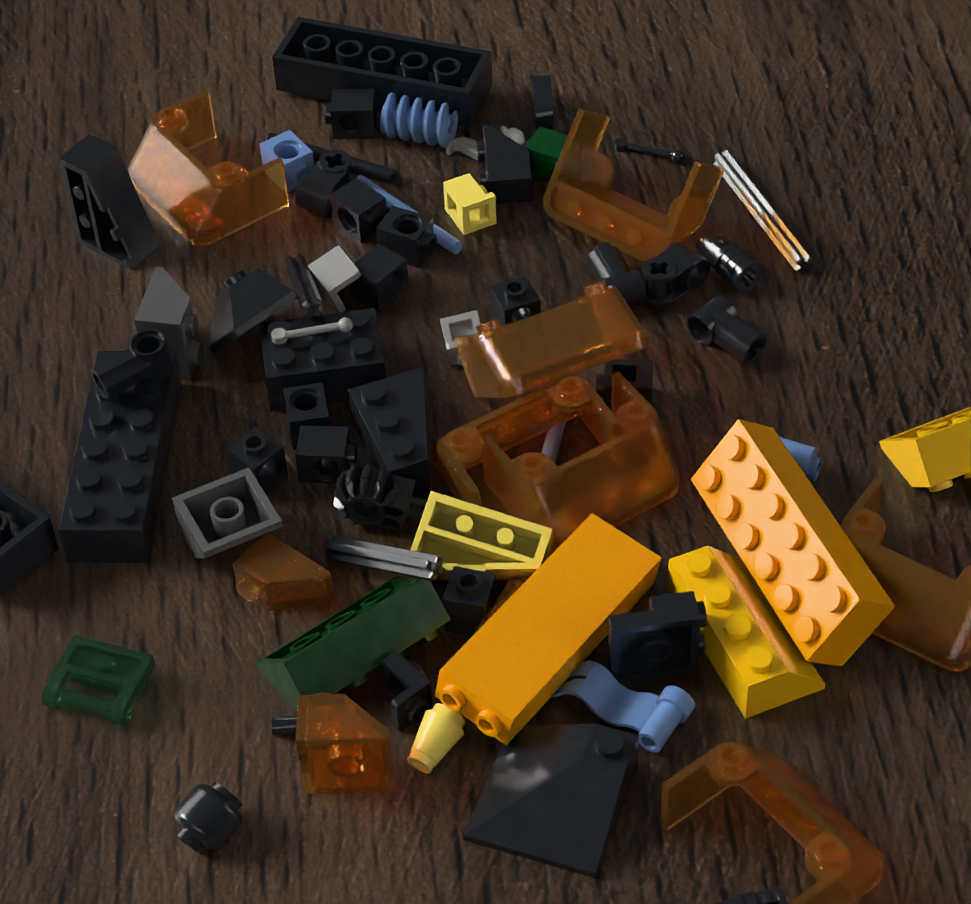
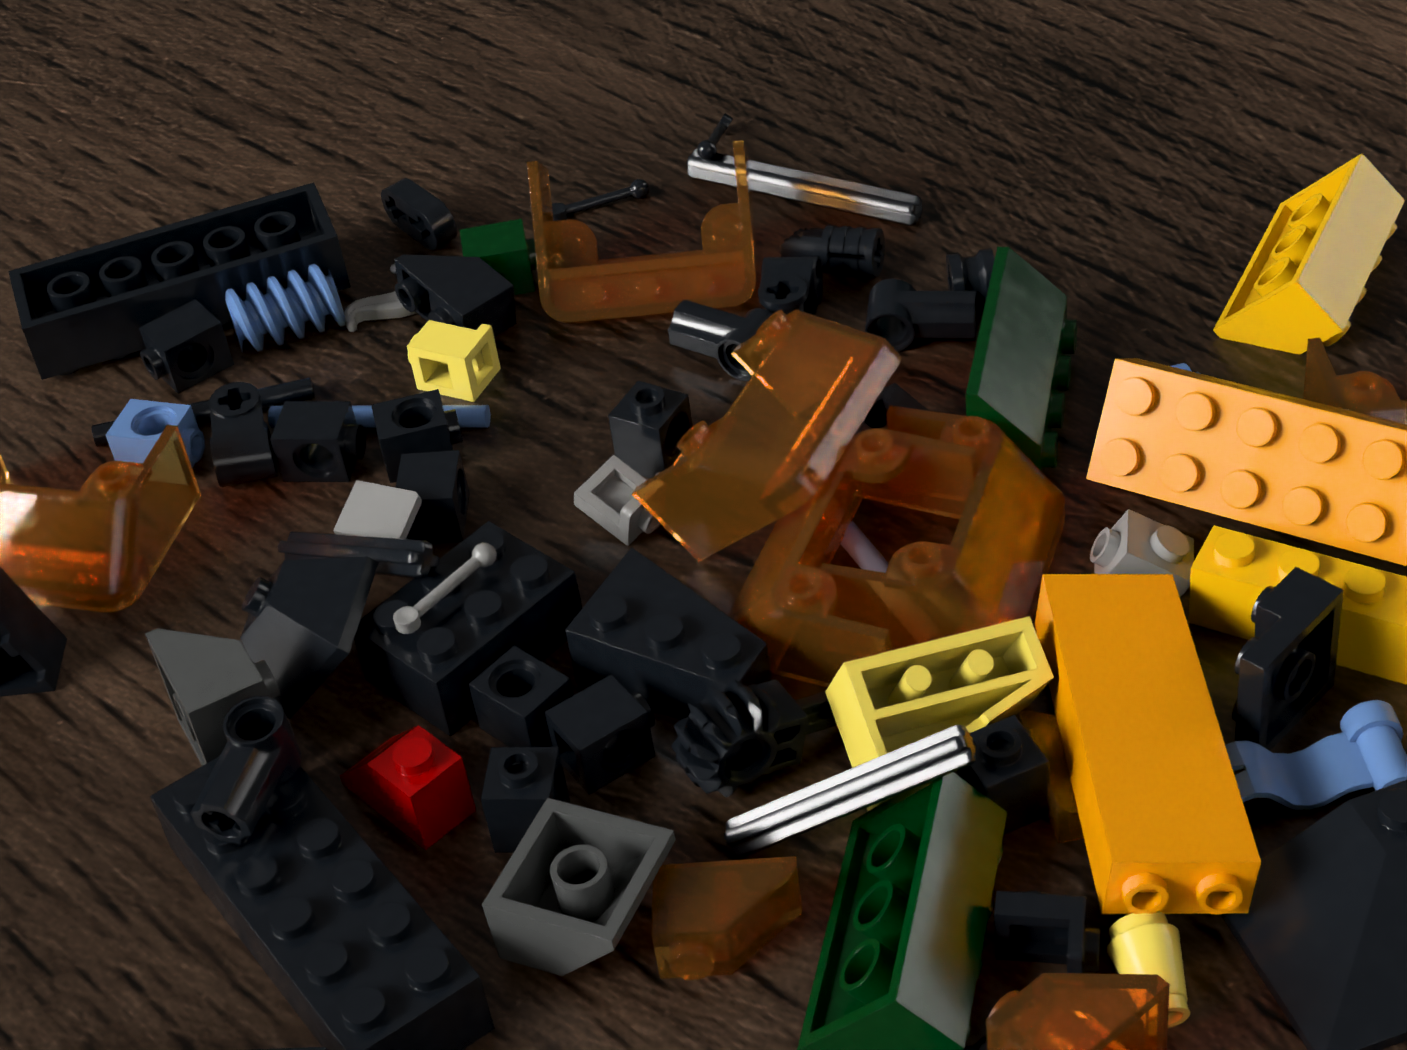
camera: 35 degrees left, 5 degrees down
(219, 423) = (414, 785): none -> red slope
(675, 535) = (1144, 547): none -> light grey bracket
(727, 154) = (707, 148): none -> black hinge
(733, 382) = (1023, 358): none -> dark green slope
(779, 324) = (970, 272): none -> black wheel

